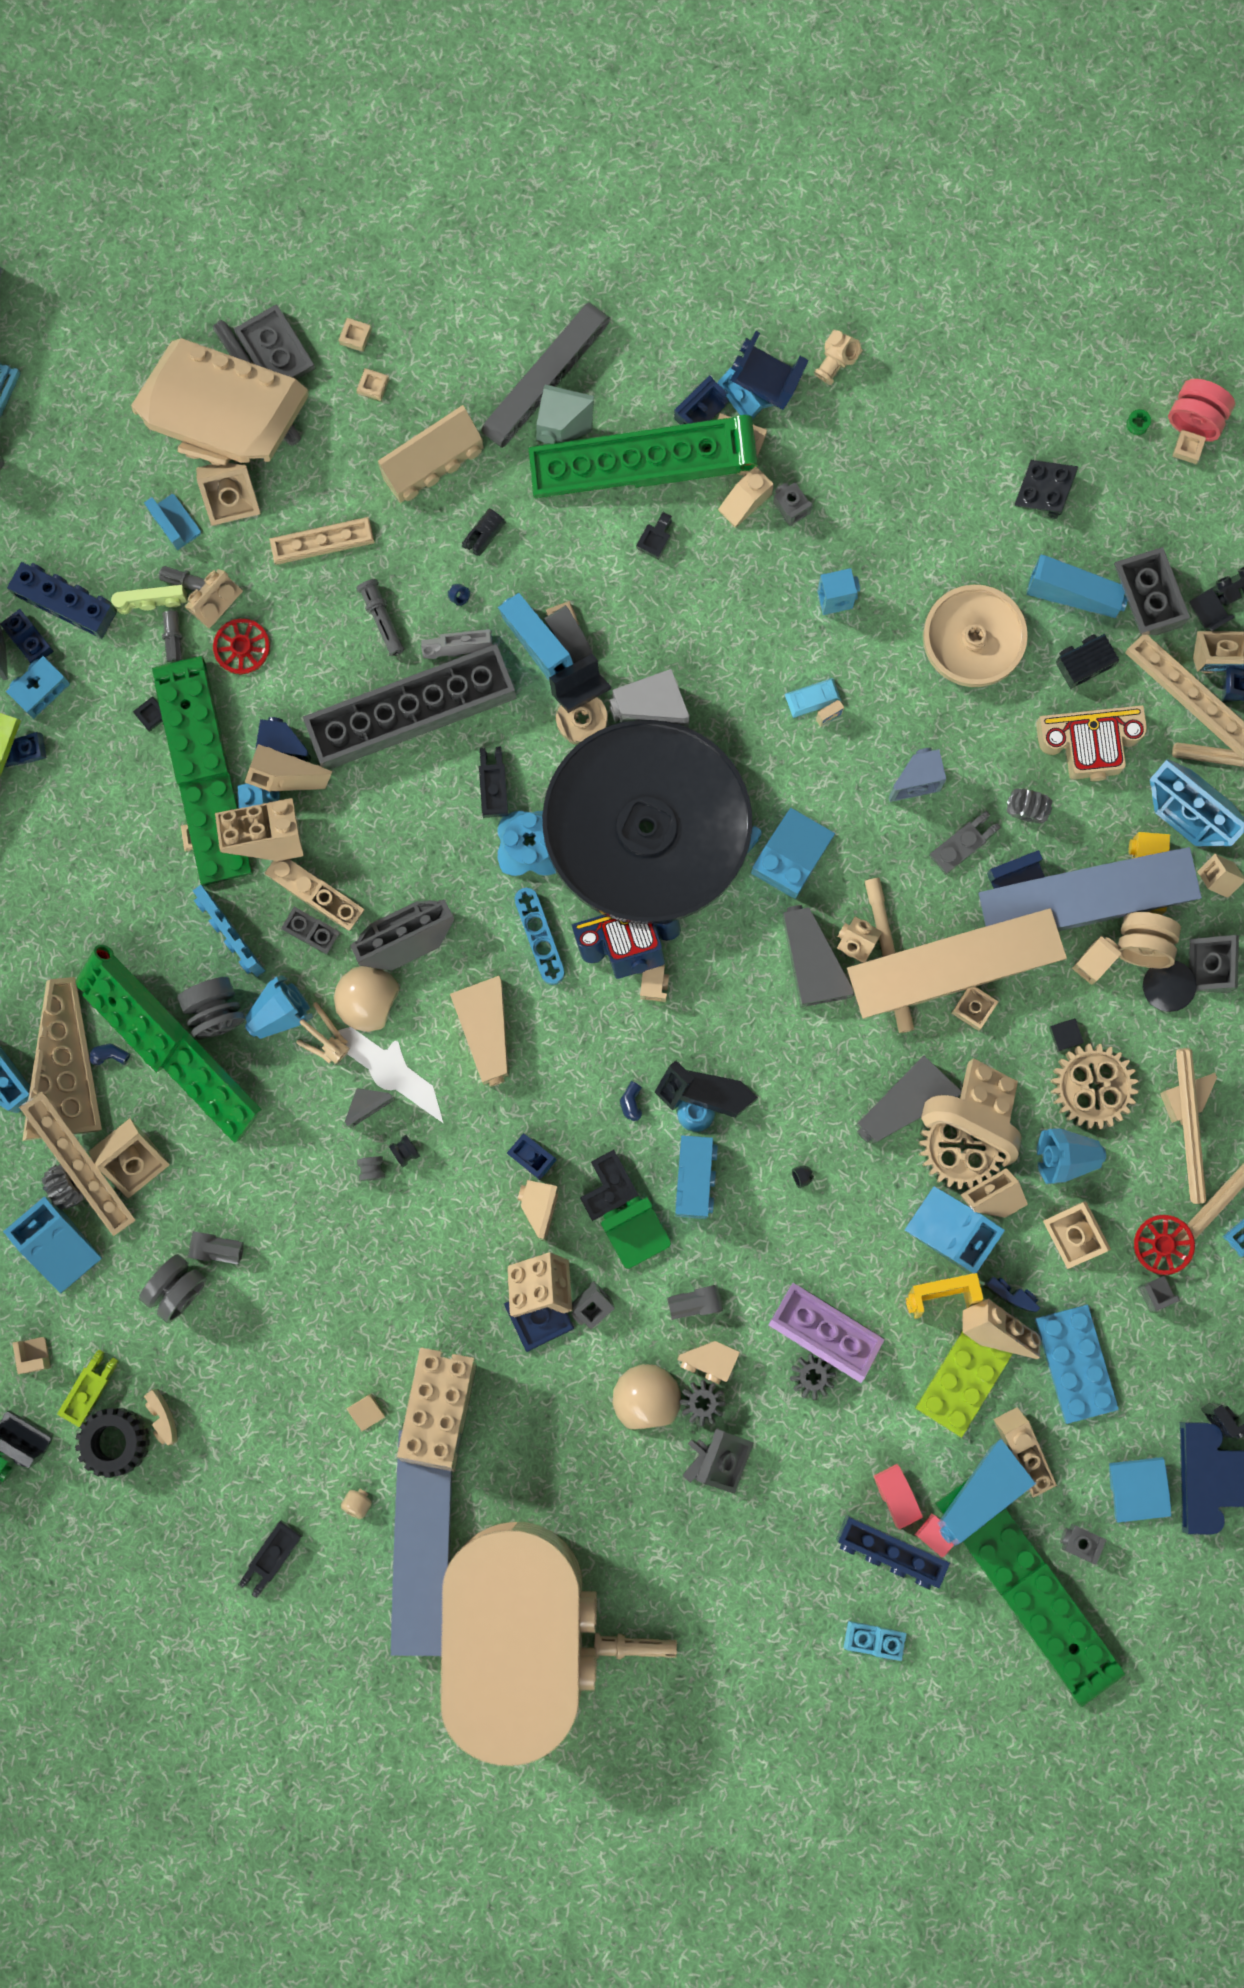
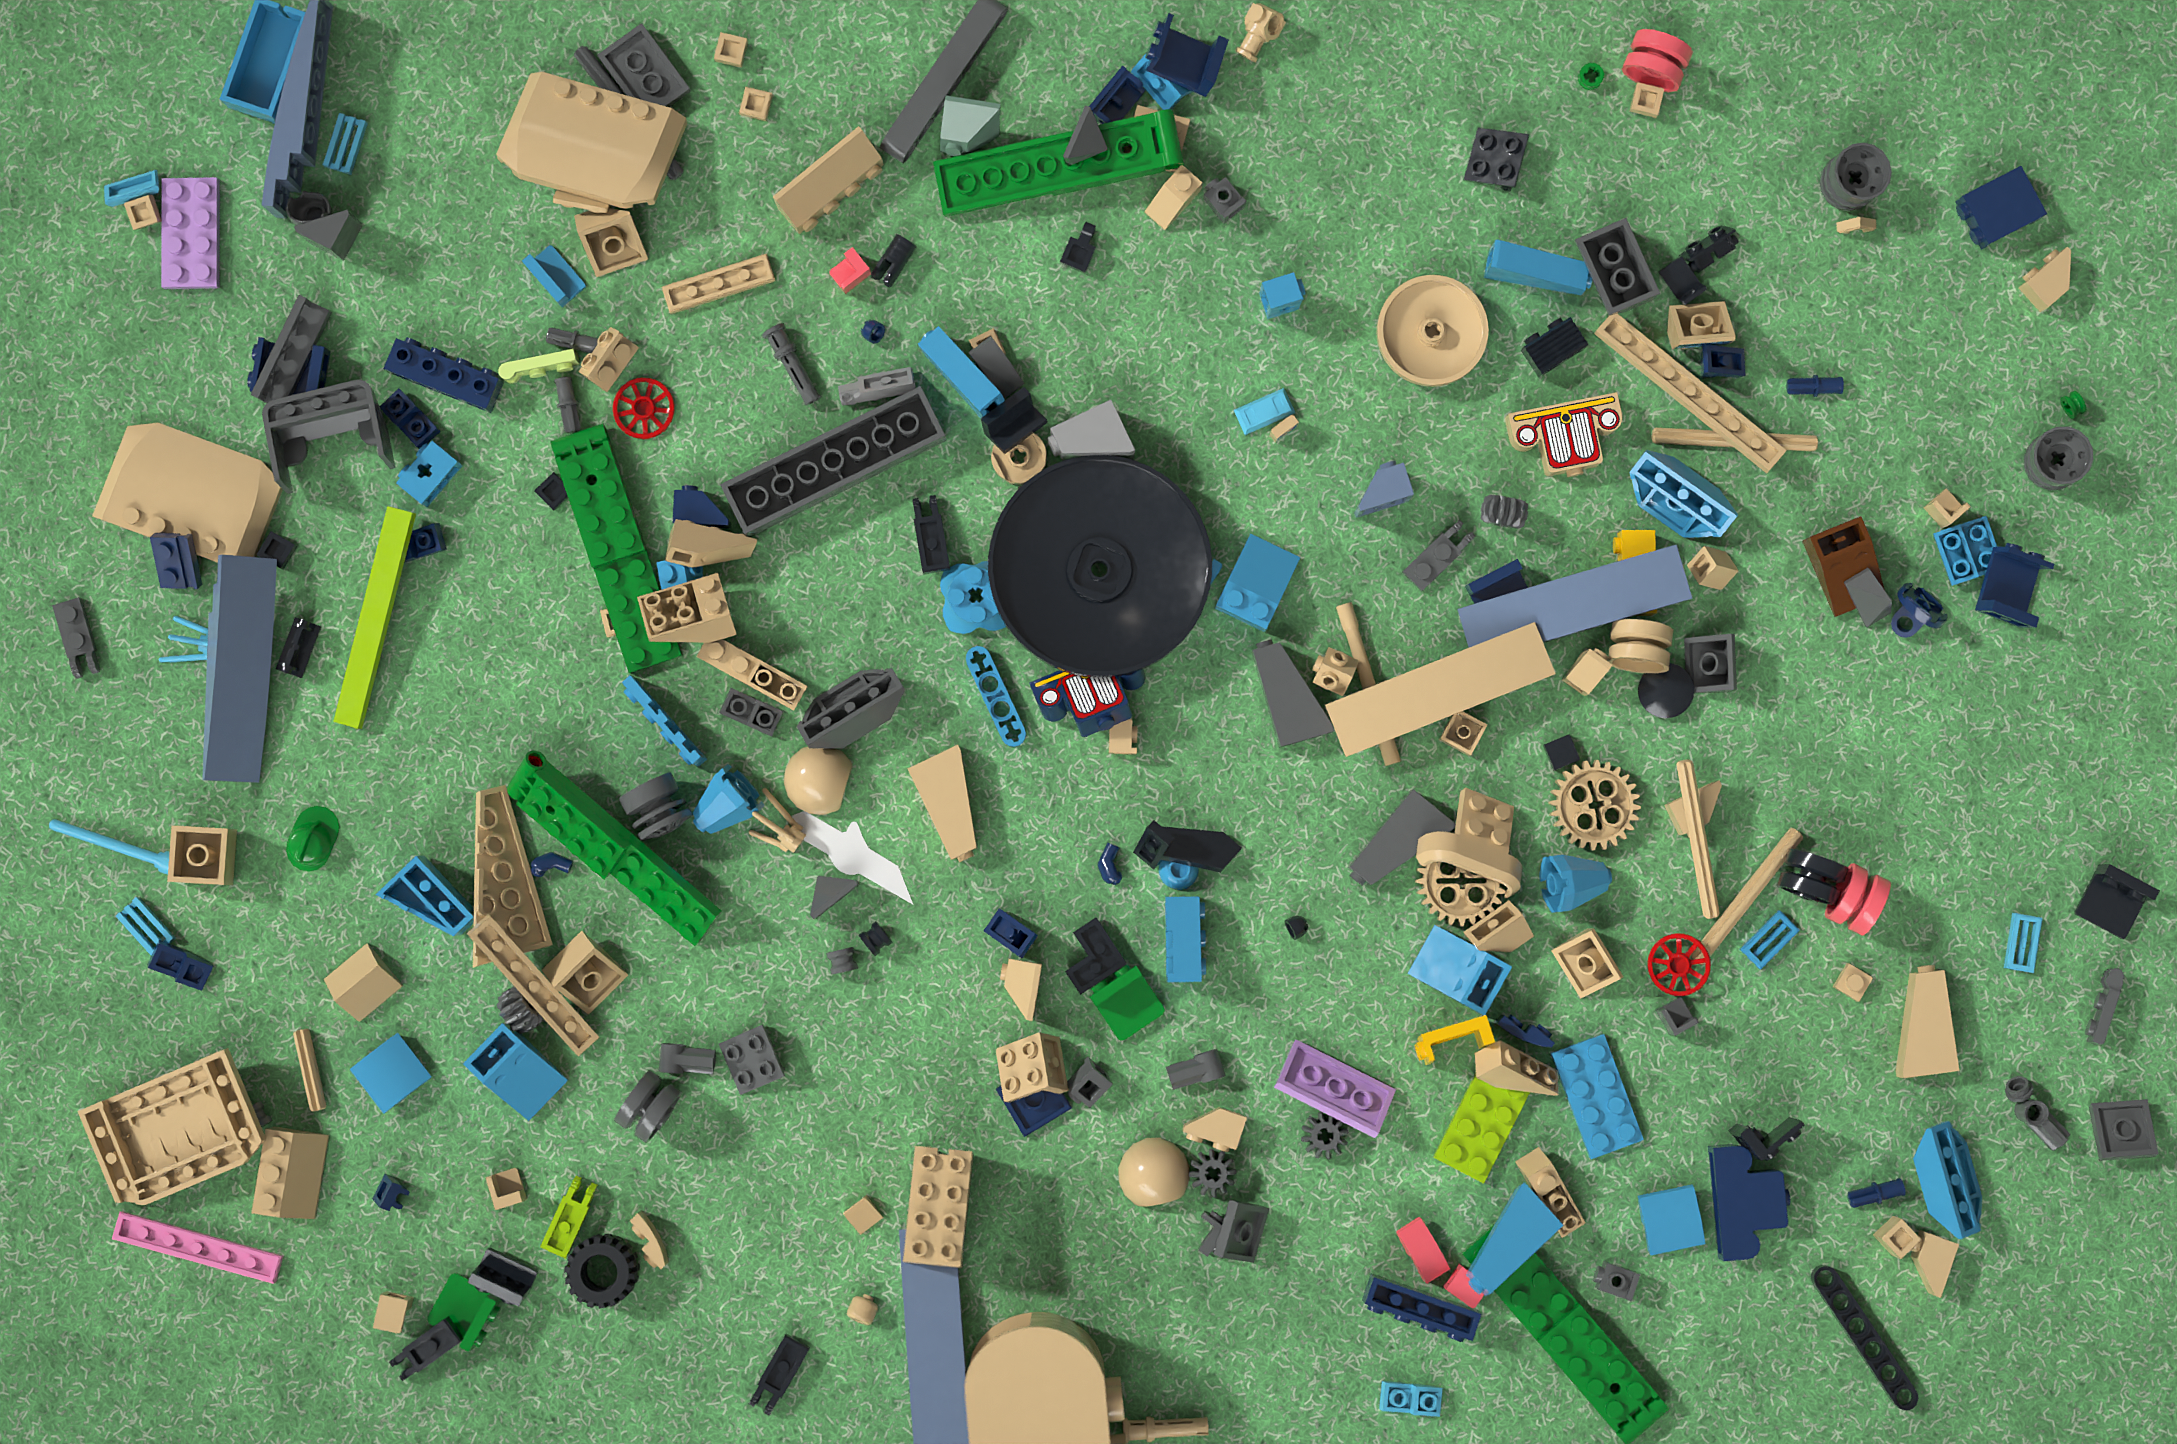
camera: 10 degrees left, 5 degrees up
(277, 1254) = (752, 1059): none -> dark grey hinge
(443, 539) = (850, 271): none -> coral panel
(669, 435) = (1085, 140): none -> dark grey slope

